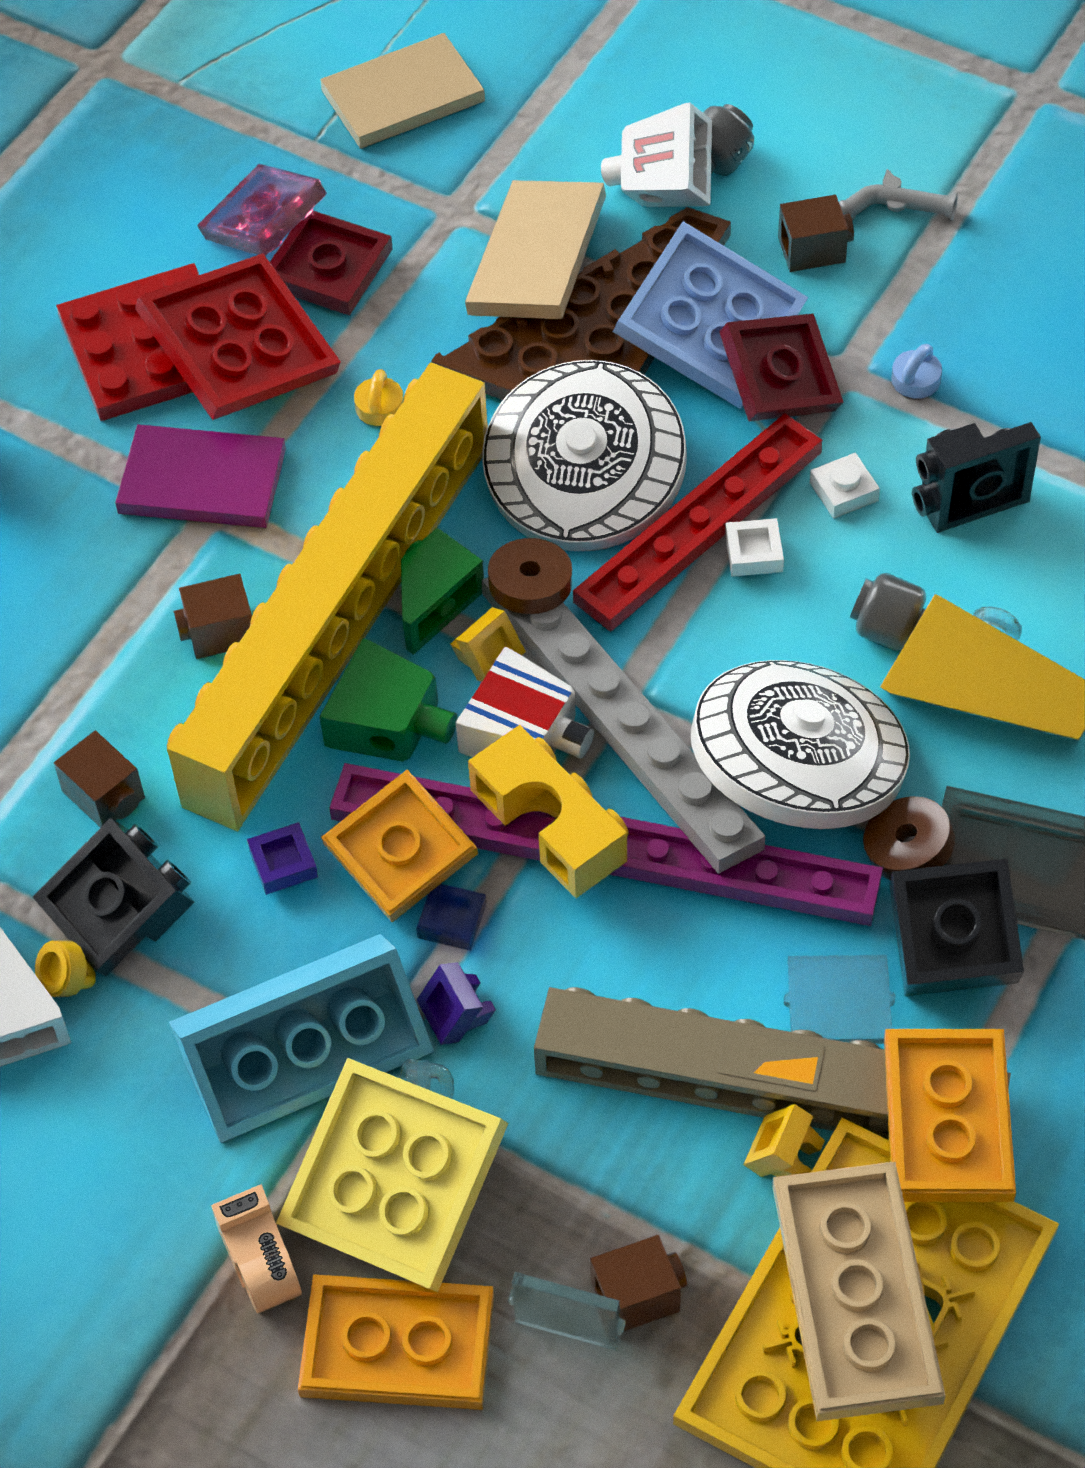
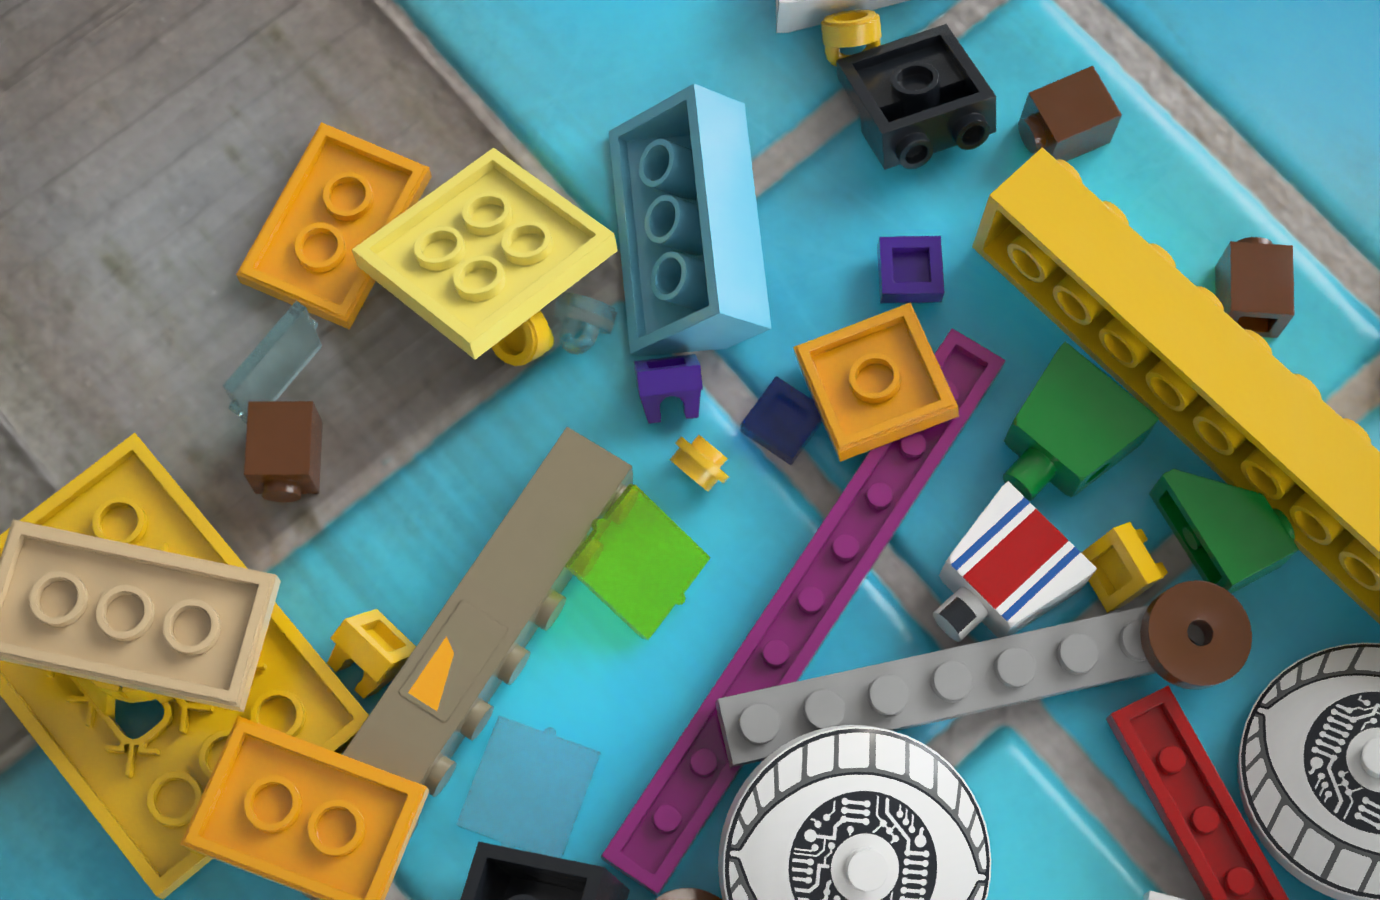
camera: 105 degrees right, 15 degrees up
(256, 1249) = (469, 124): light nougat leg -> none
(516, 956) = (700, 462): none -> yellow plate
(524, 777) = (802, 563): yellow arch -> none
(624, 968) = (638, 561): none -> clear neon green piece

